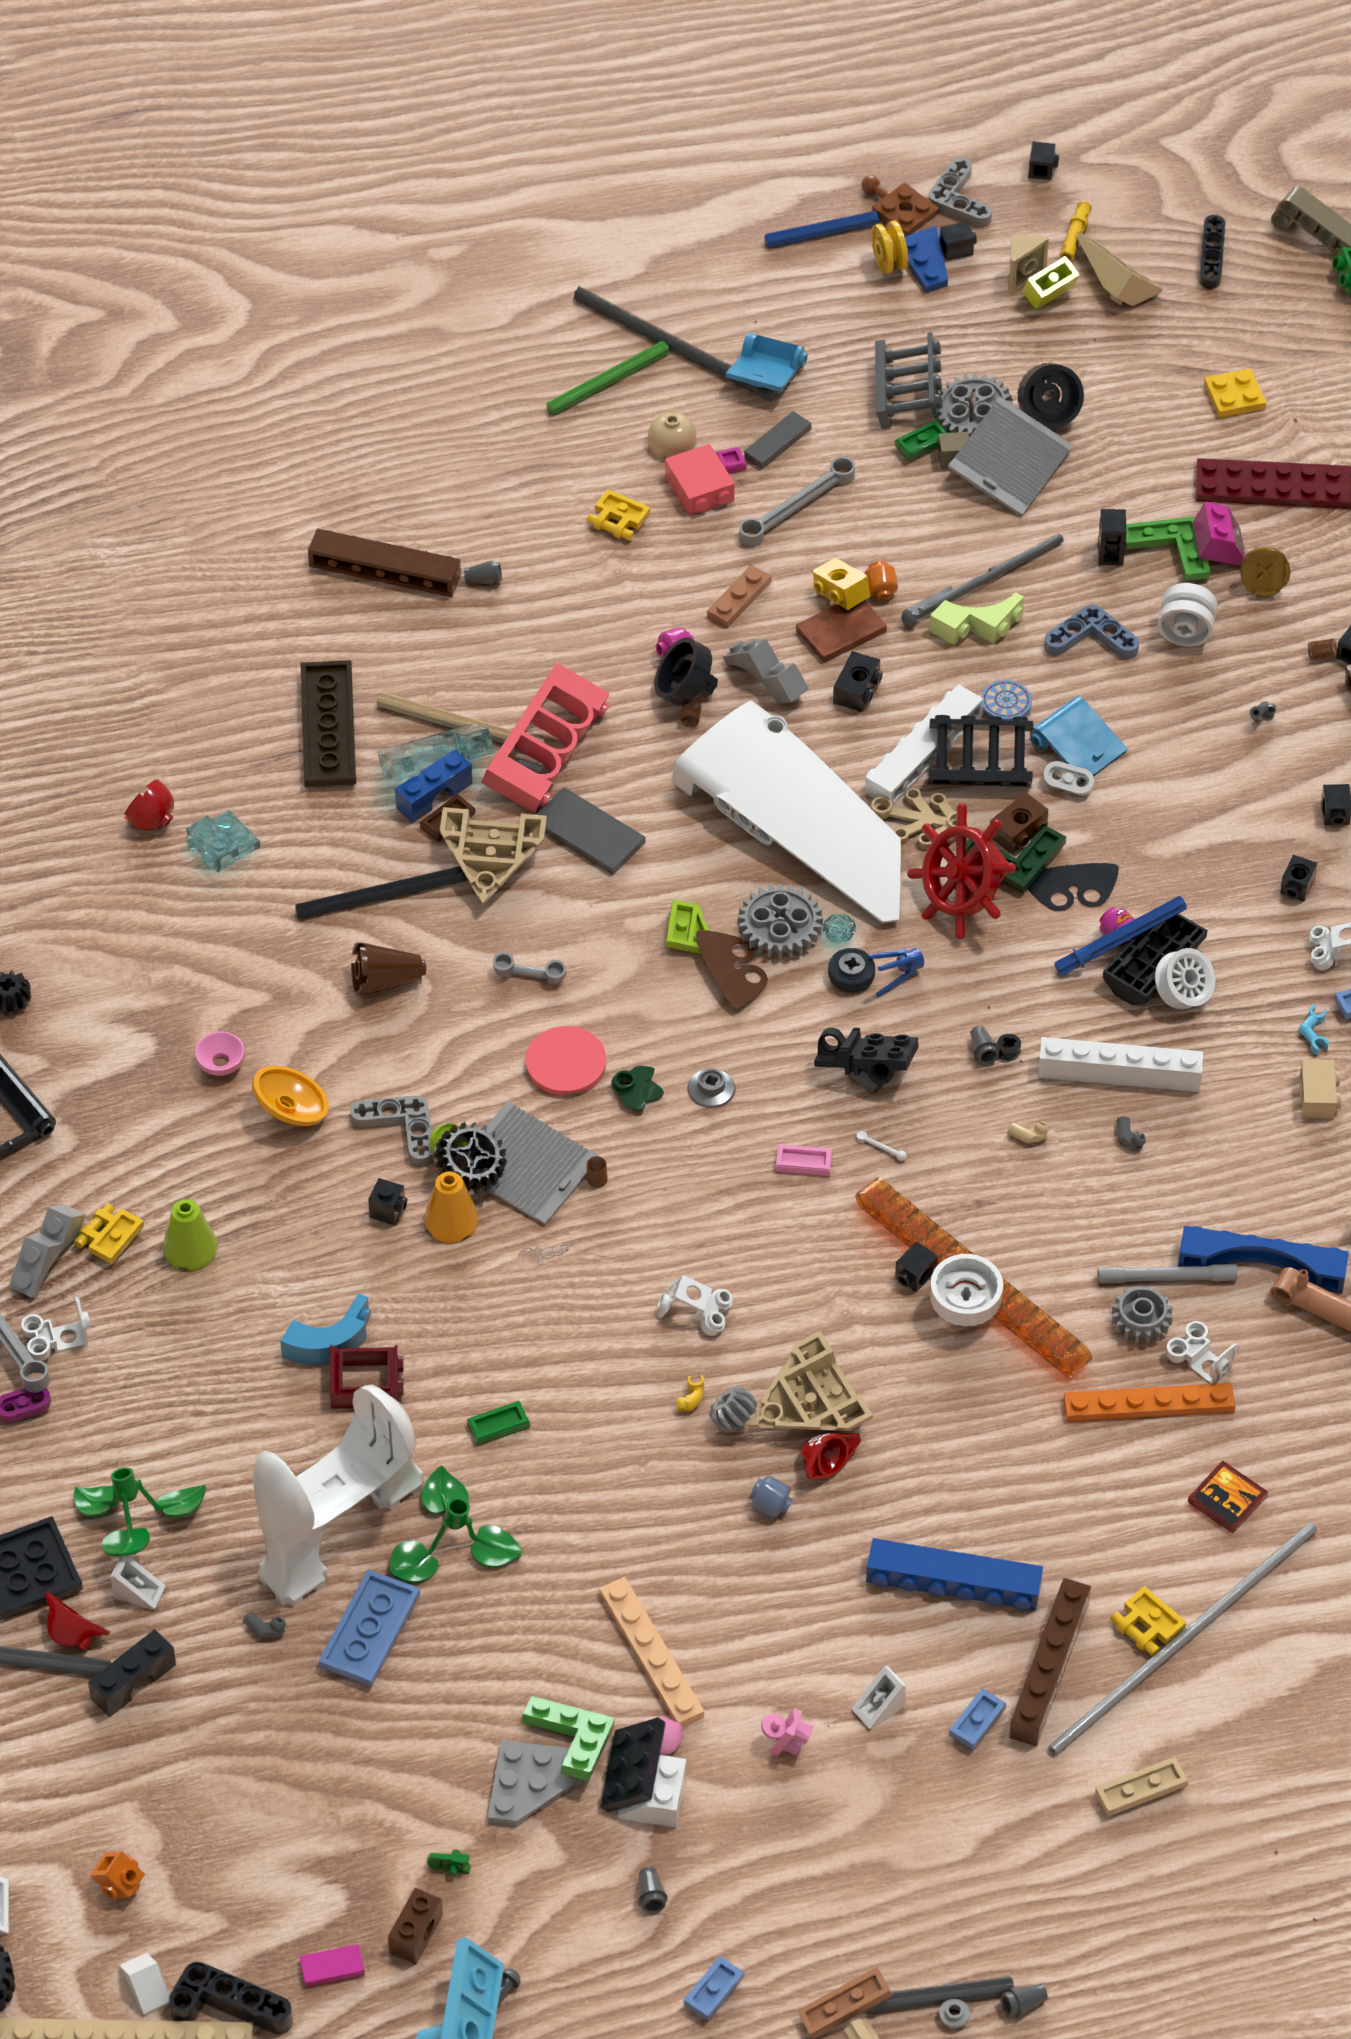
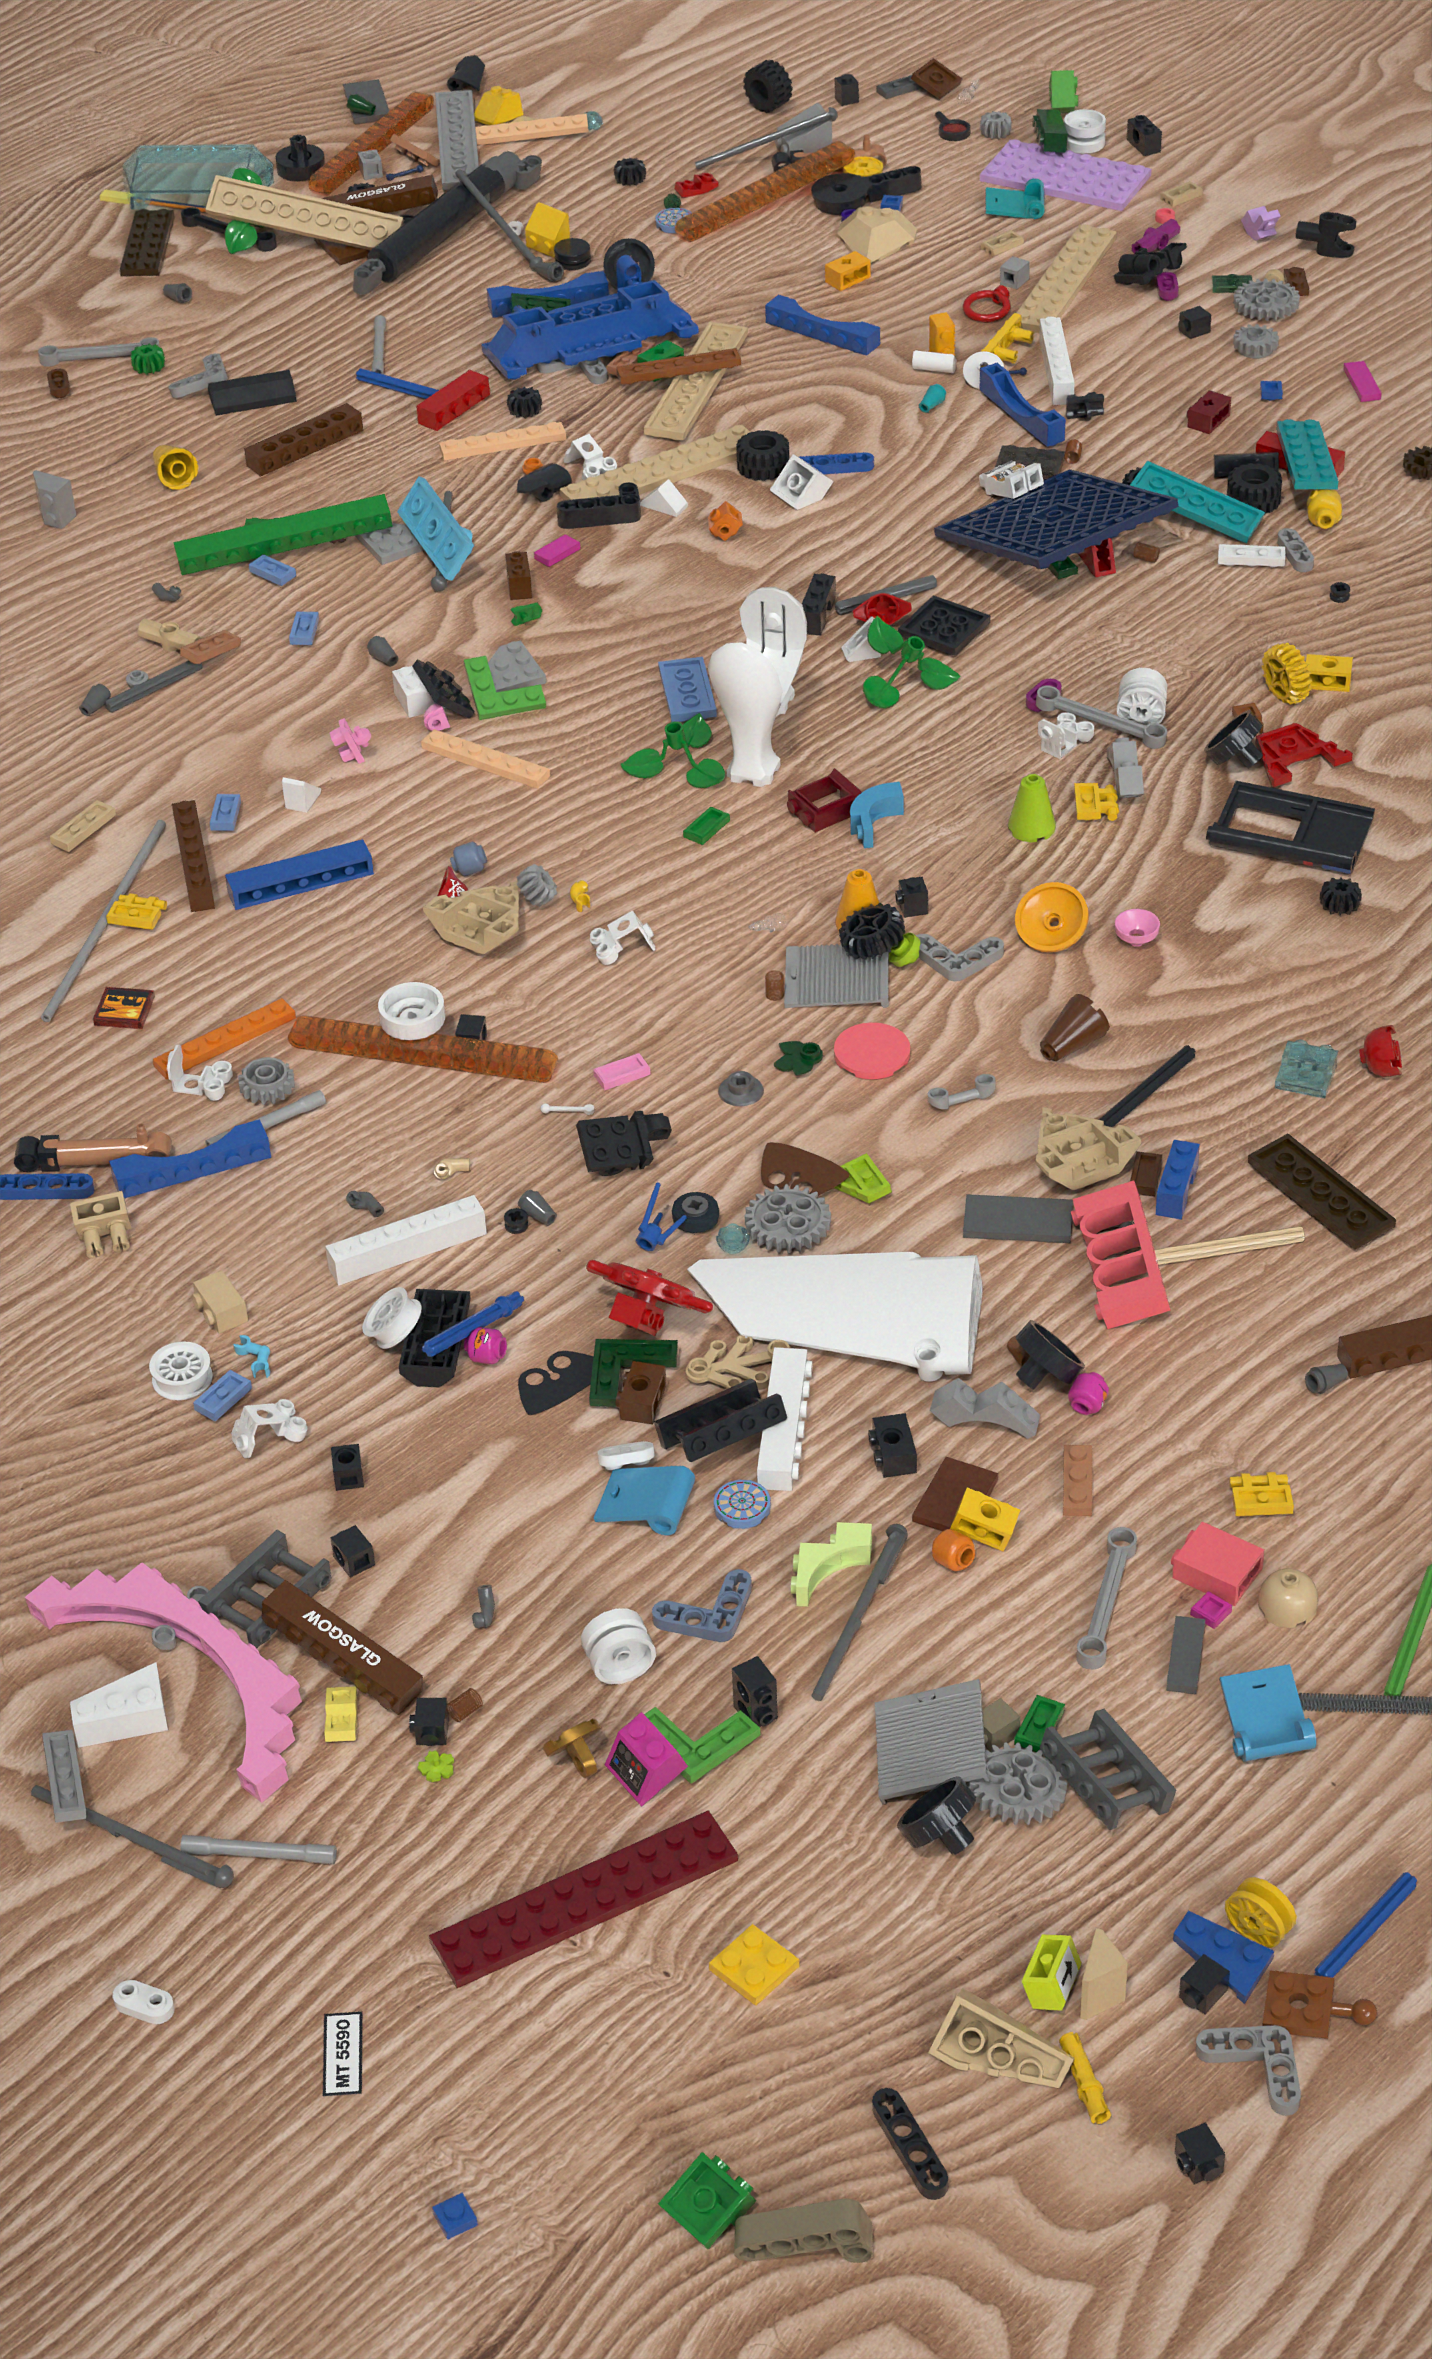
camera: 150 degrees right, 10 degrees down
(407, 758) = (1224, 1181): clear light blue arch -> none

